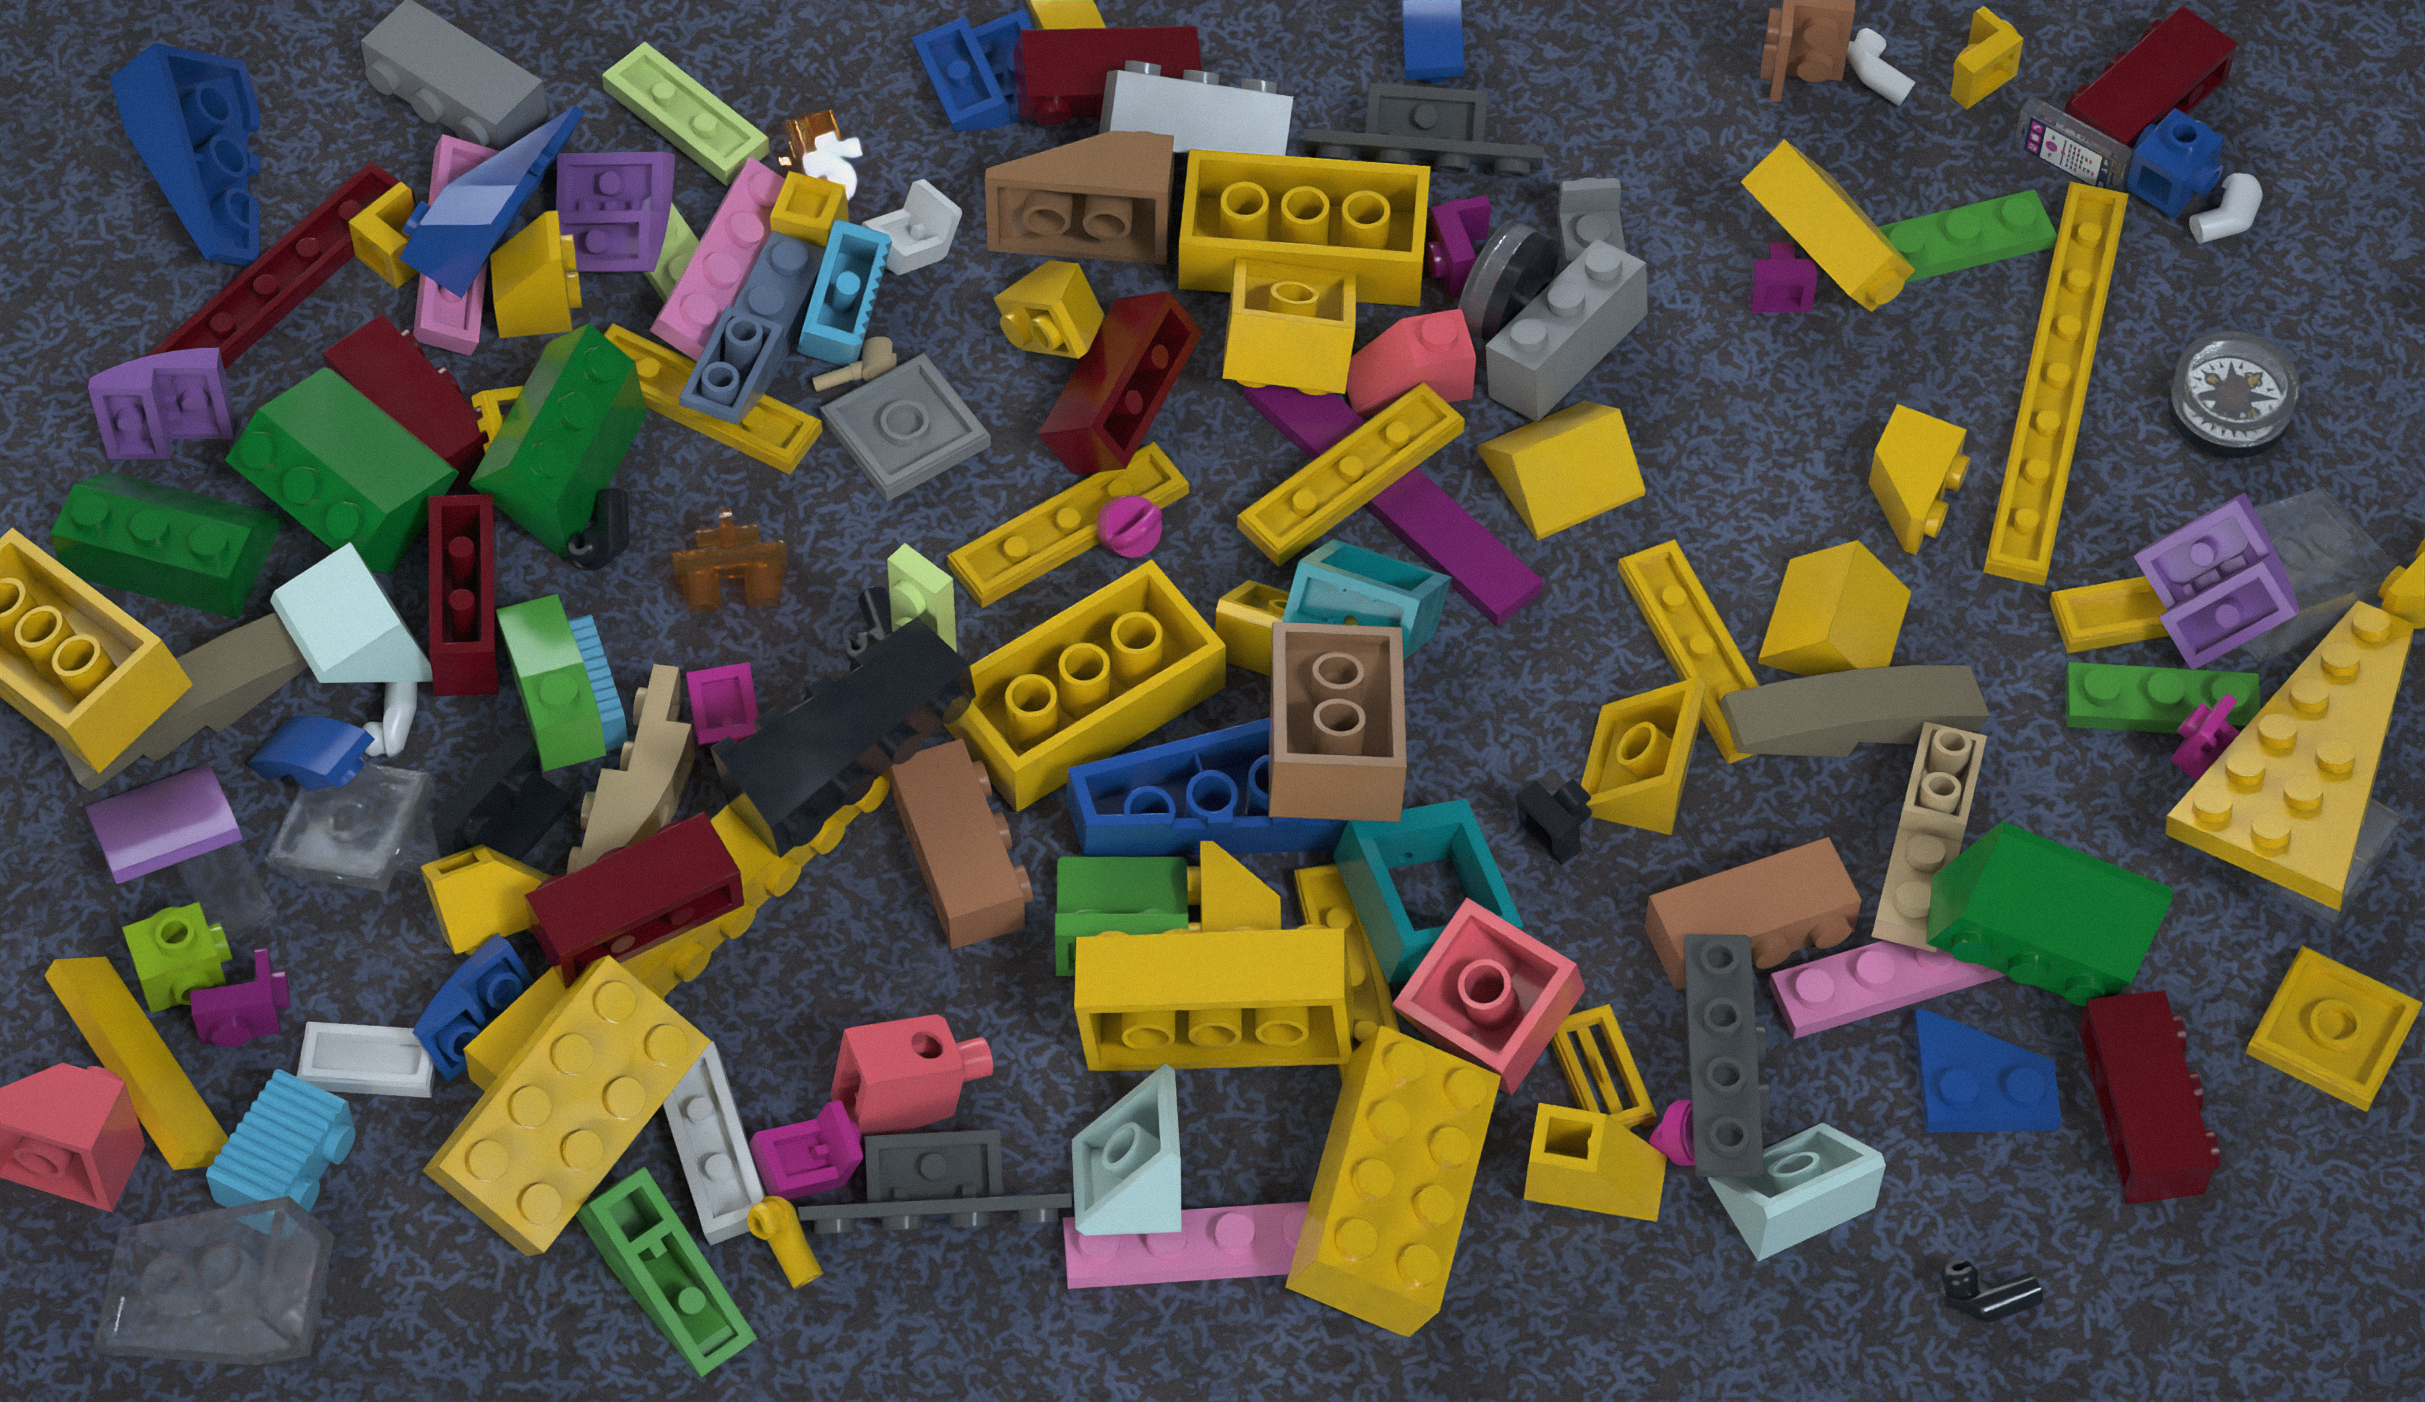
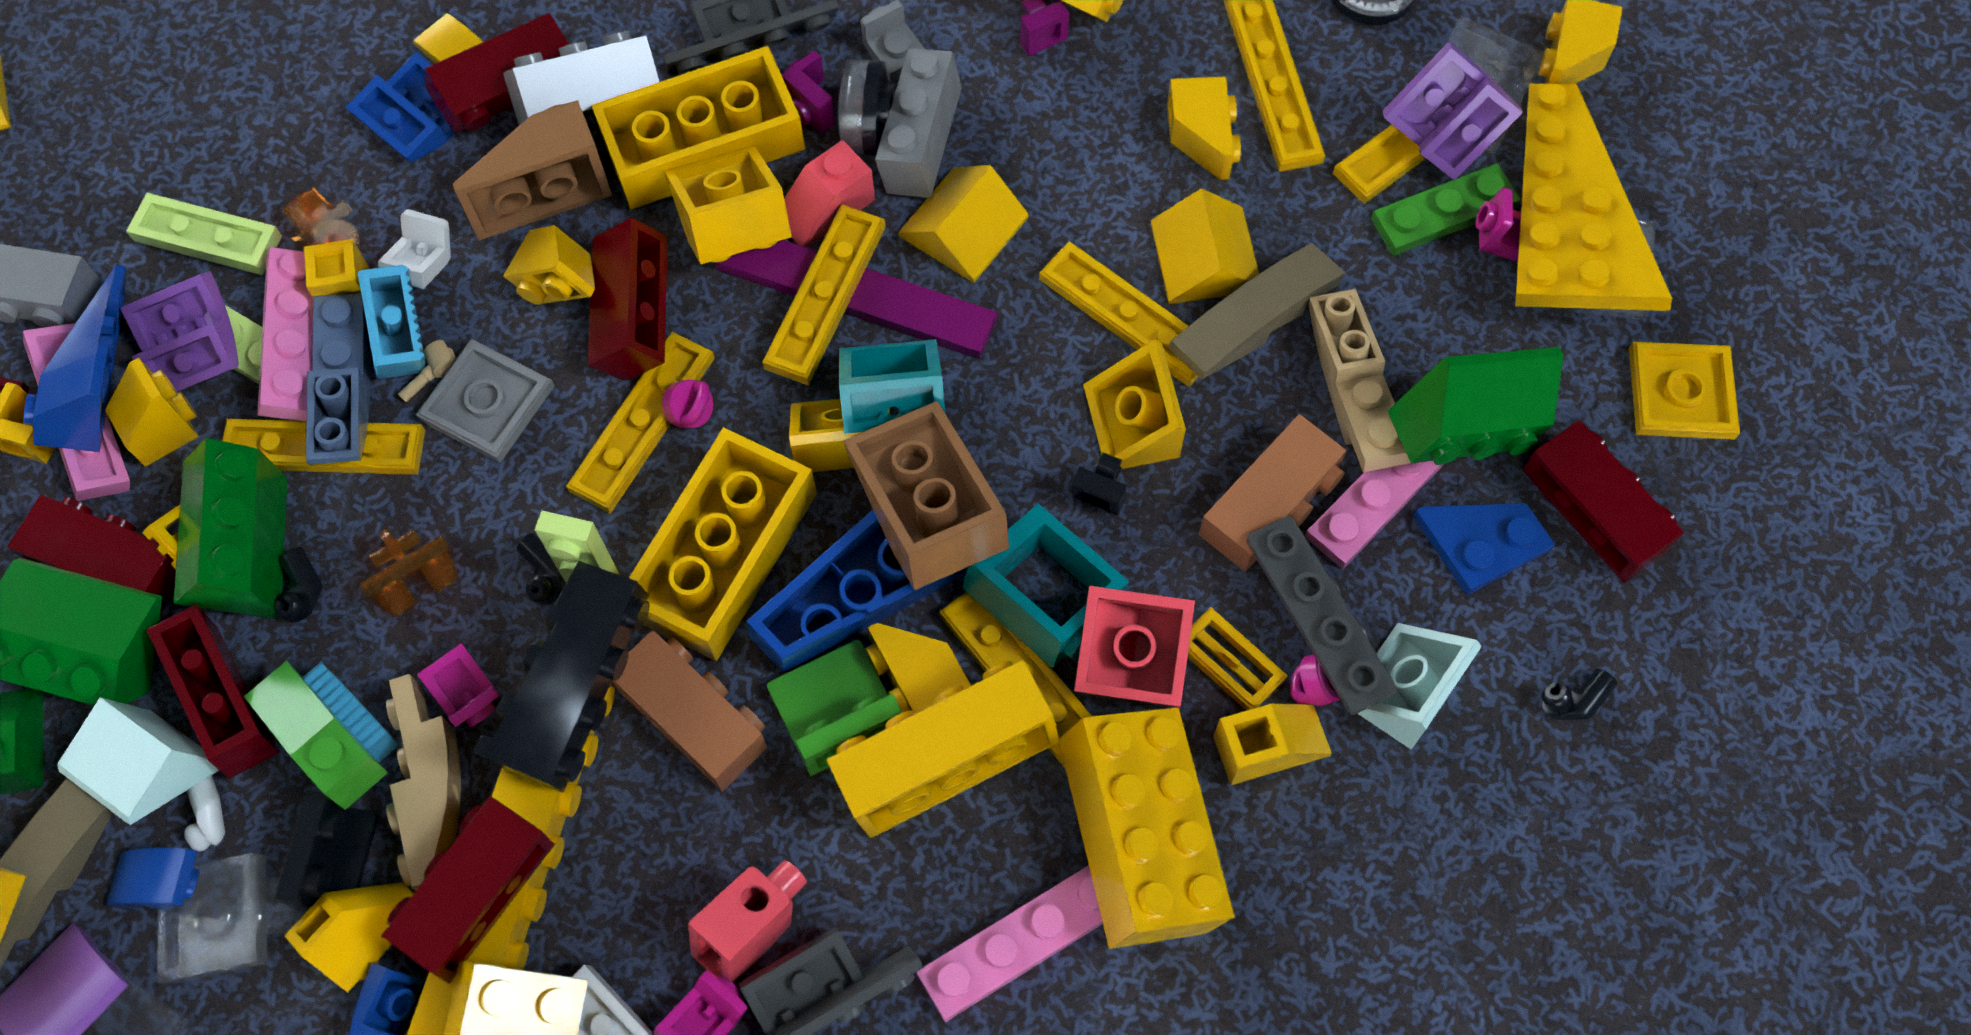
camera: 25 degrees left, 10 degrees up
(1131, 1163) = (948, 908): light aqua slope -> none

